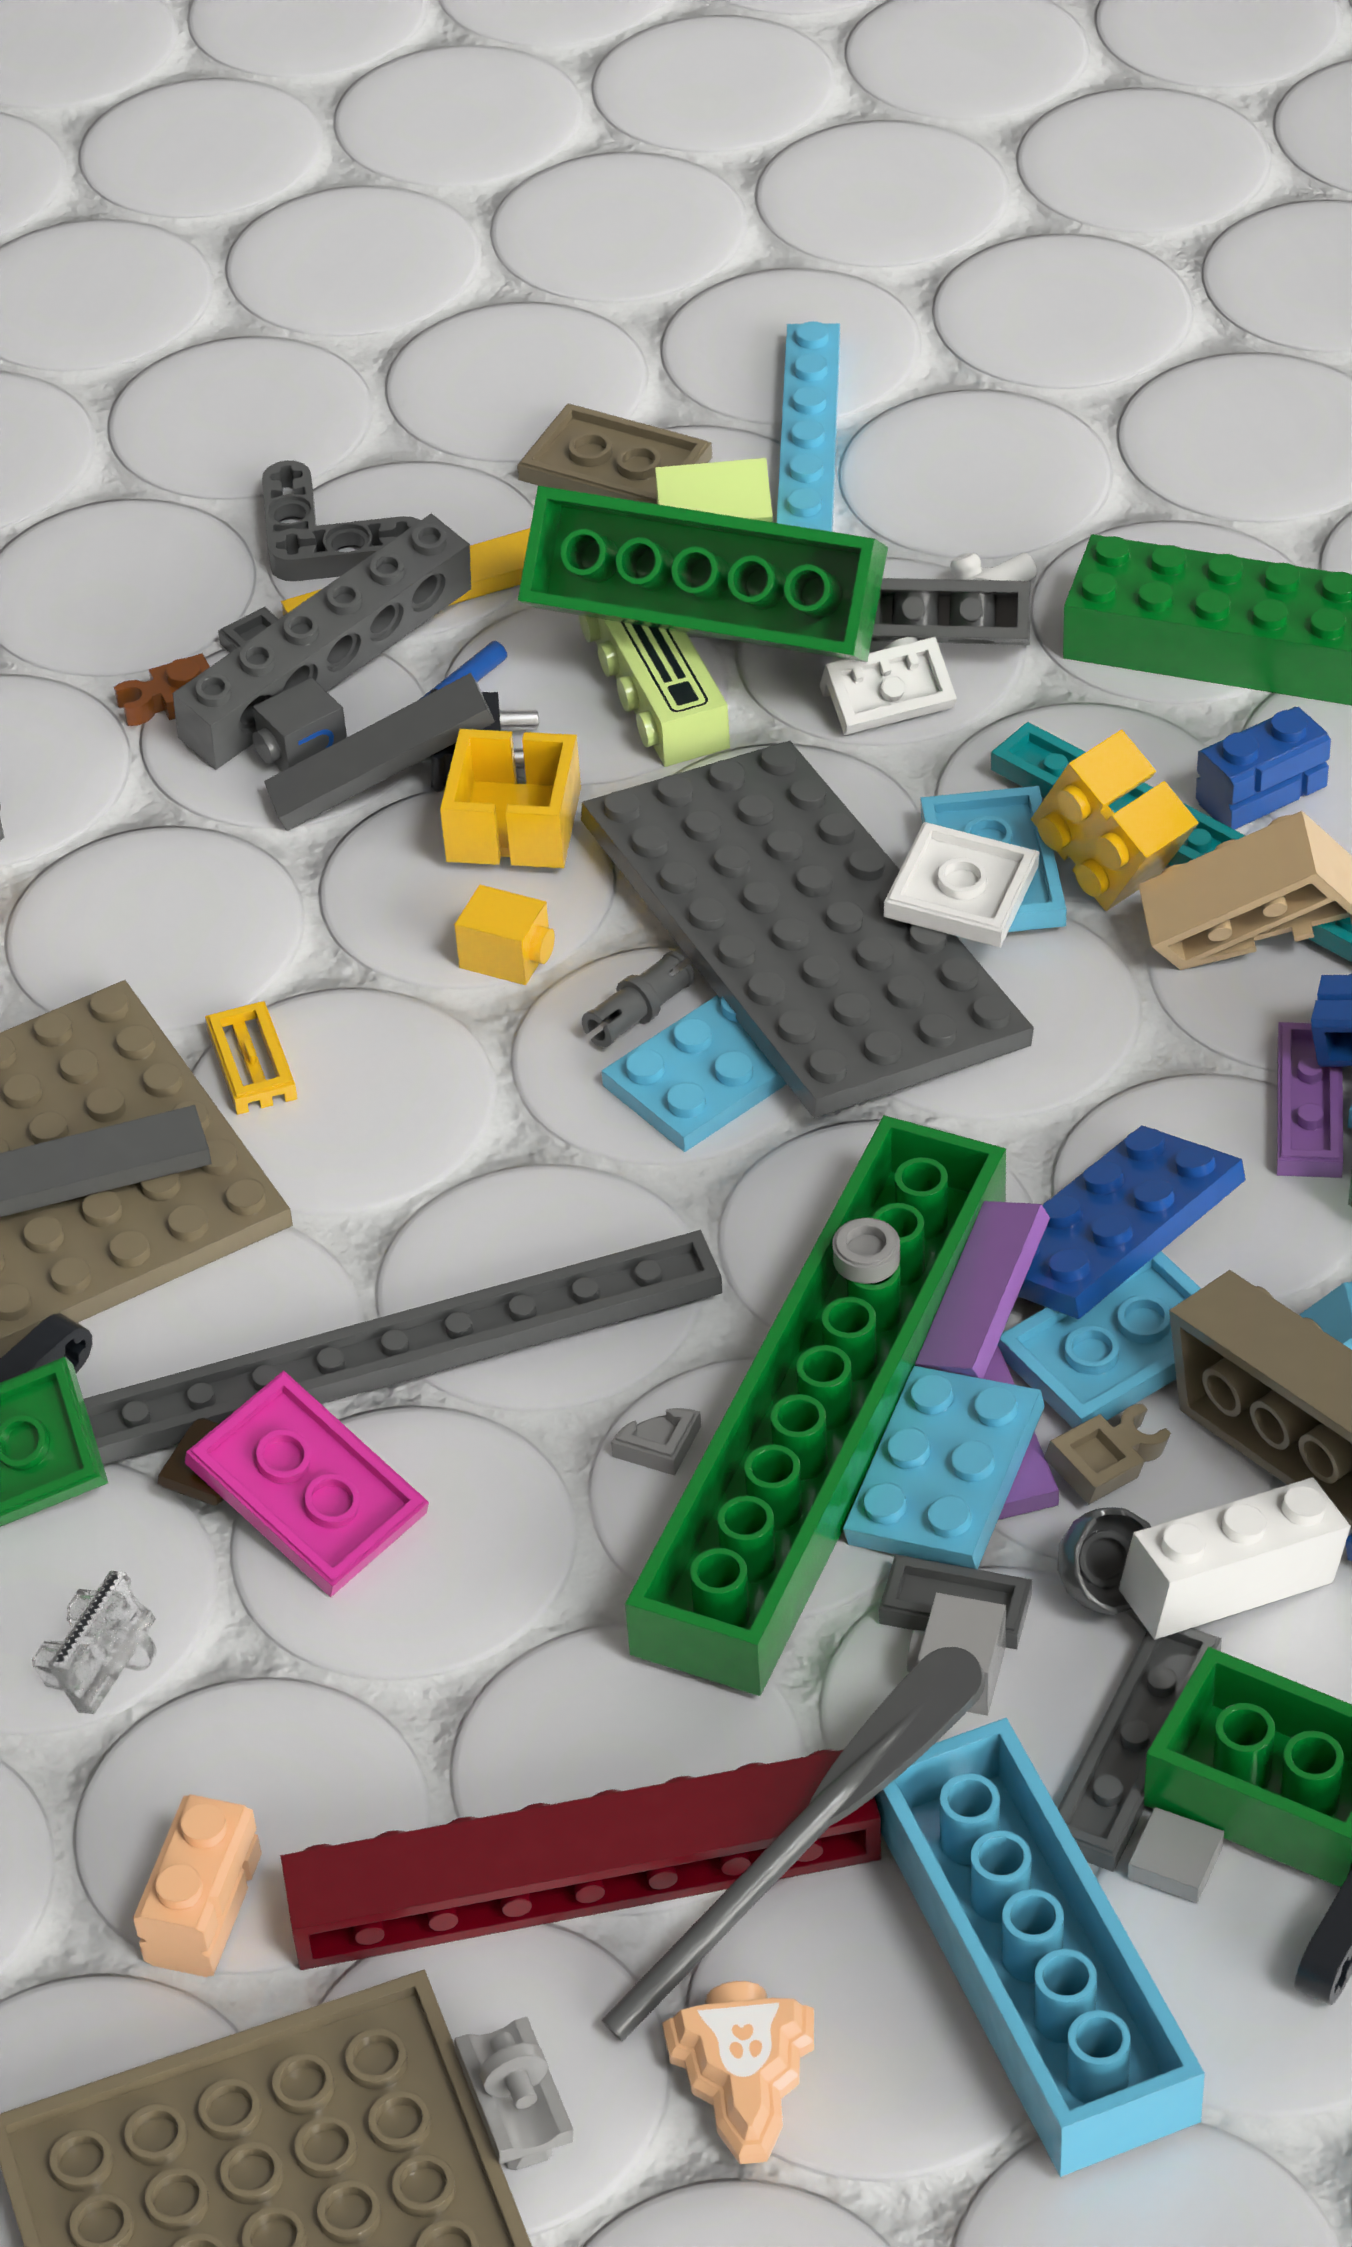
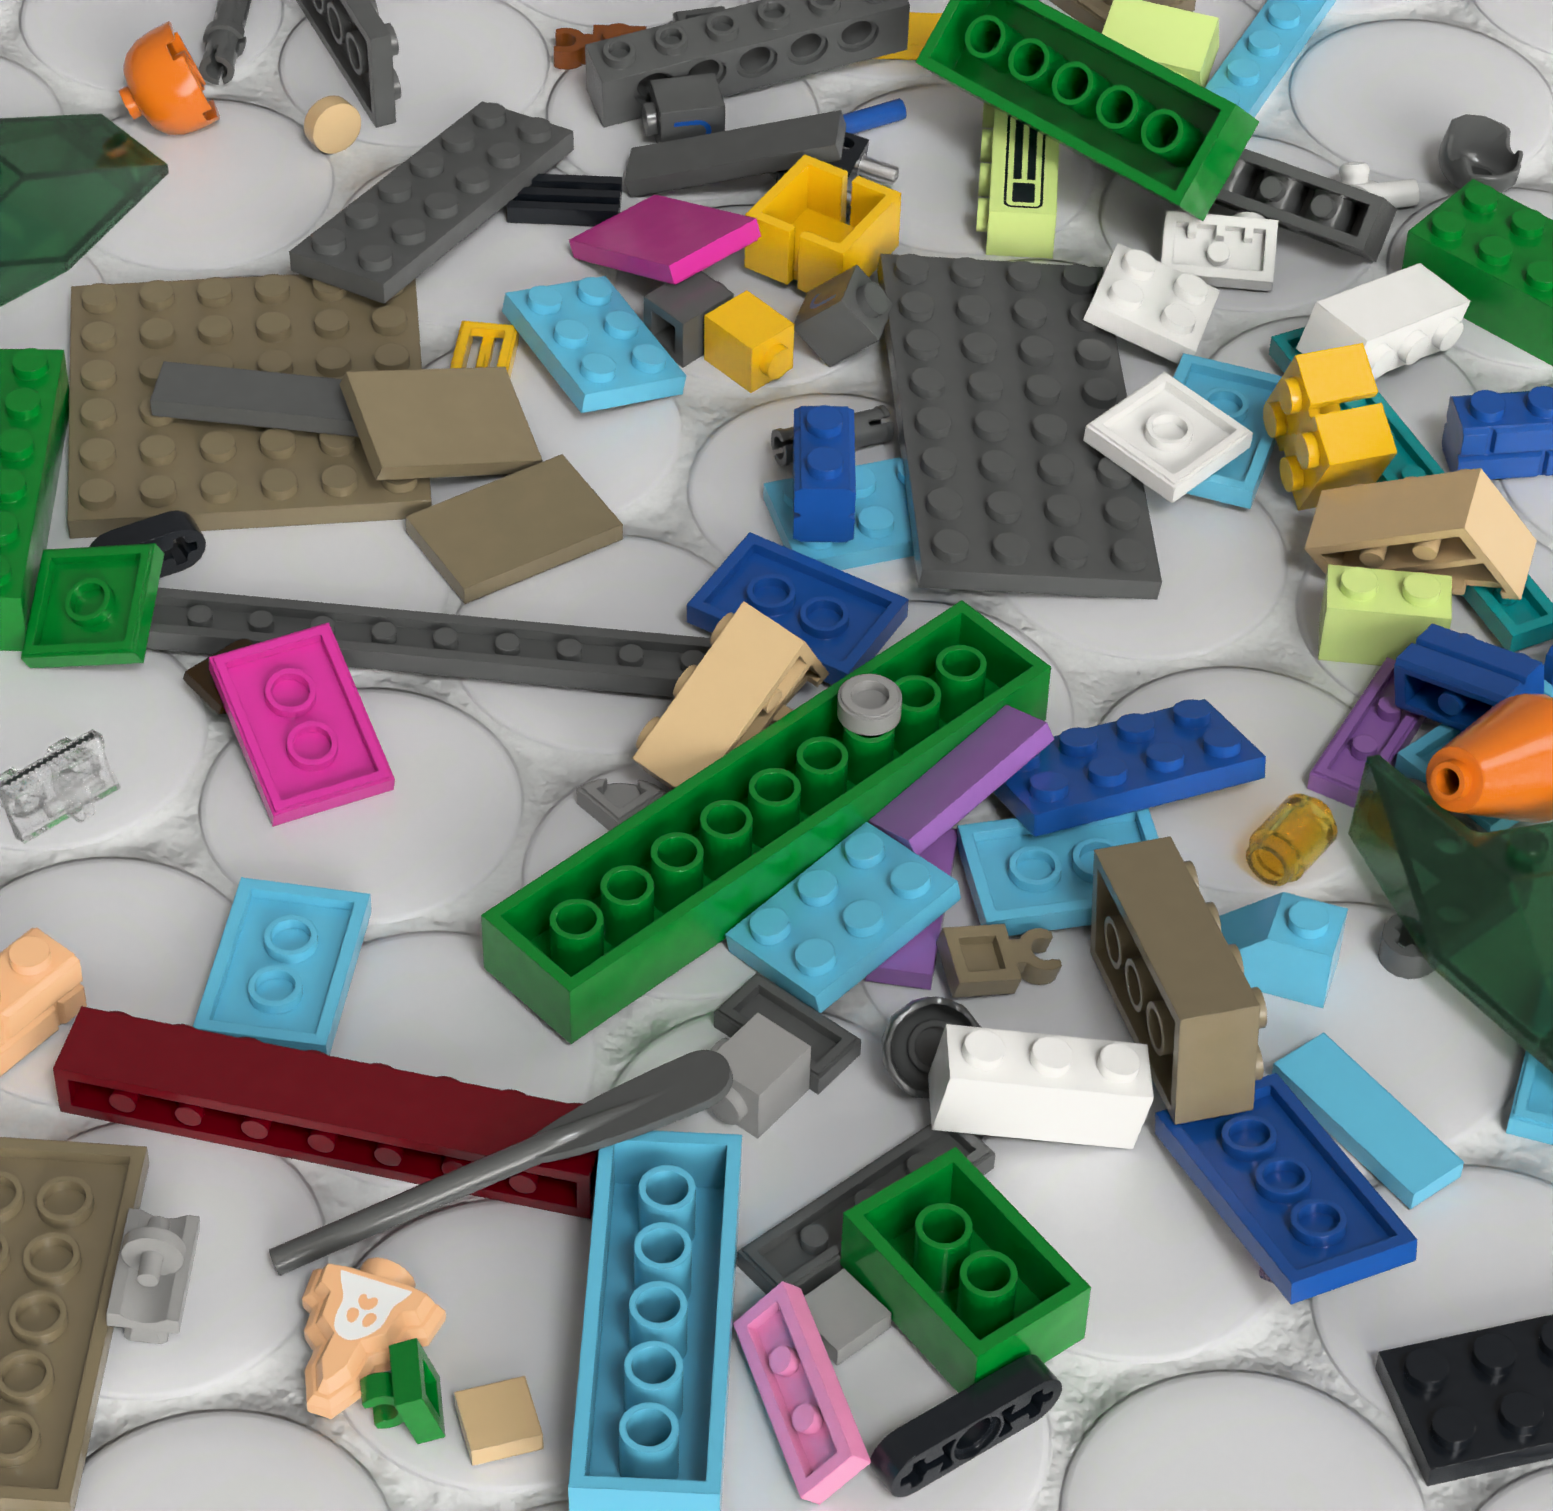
camera: 20 degrees right, 0 degrees up
(103, 906) = (431, 202): none -> dark grey plate
(227, 856) = (567, 200): none -> black tile
(260, 1127) = (439, 422): none -> dark tan tile
(350, 992) = (593, 344): none -> medium azure plate
(362, 861) = (665, 239): none -> dark pink tile
(384, 1206) = (513, 528): none -> dark tan tile
(422, 931) = (678, 313): none -> dark grey brick
(440, 1731) = (285, 964): none -> medium azure plate
(583, 876) = (843, 315): none -> dark grey brick
(671, 1040) = (824, 474): none -> blue brick
(713, 1181) = (827, 608): none -> blue plate
(721, 1302) = (728, 696): none -> tan wedge
(827, 2105) = (407, 1393): none -> green tile
(861, 760) = (1151, 304): none -> white plate
(923, 2093) = (498, 1420): none -> tan tile
(1069, 511) = (1479, 151): none -> dark grey hair
(1093, 699) = (1392, 316): none -> white brick
(1197, 1945) = (801, 1393): none -> bright pink plate
(1255, 984) = (1379, 612): none -> yellowish green brick
(1304, 1230) = (1291, 839): none -> clear yellow brick

